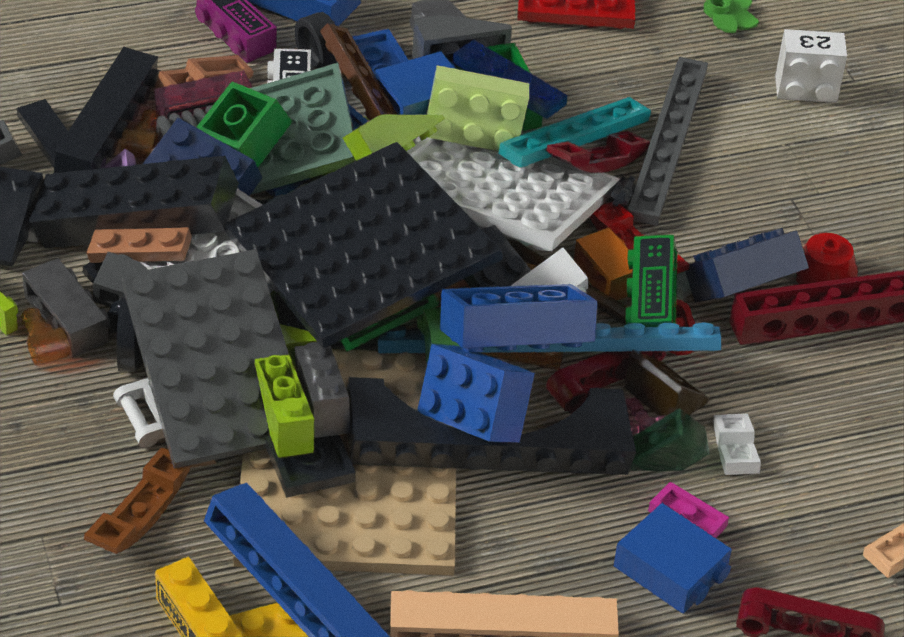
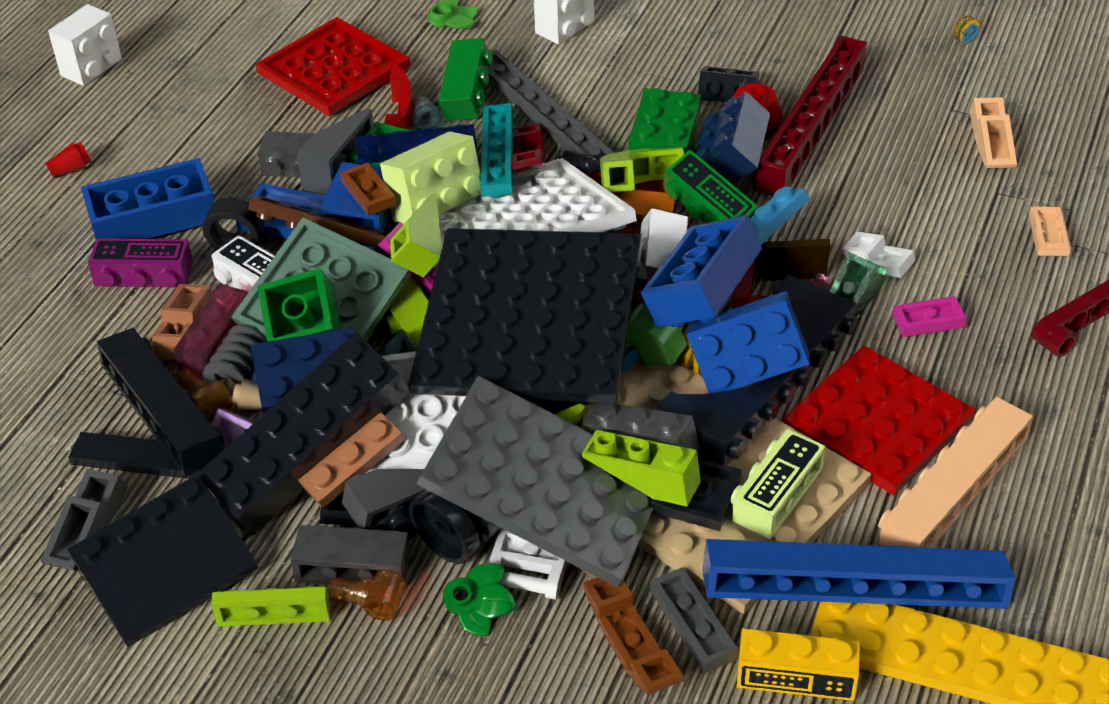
camera: 45 degrees left, 0 degrees up
(96, 400) = (484, 599): none -> green plate
(188, 533) = (694, 620): none -> dark grey plate
(366, 503) = (777, 483): none -> yellowish green brick
(416, 80) = (368, 189): none -> dark orange plate
(530, 539) = (880, 418): none -> red plate
(570, 54) = (400, 93): none -> red slope
(581, 68) = (425, 112): none -> clear light blue cone
(630, 216) = (635, 166): none -> lime arch
(641, 64) = (465, 79): none -> green brick
(673, 558) = (968, 348): blue brick -> none
(725, 215) = (666, 120): none -> green brick
(848, 221) = (722, 83): none -> black bracket

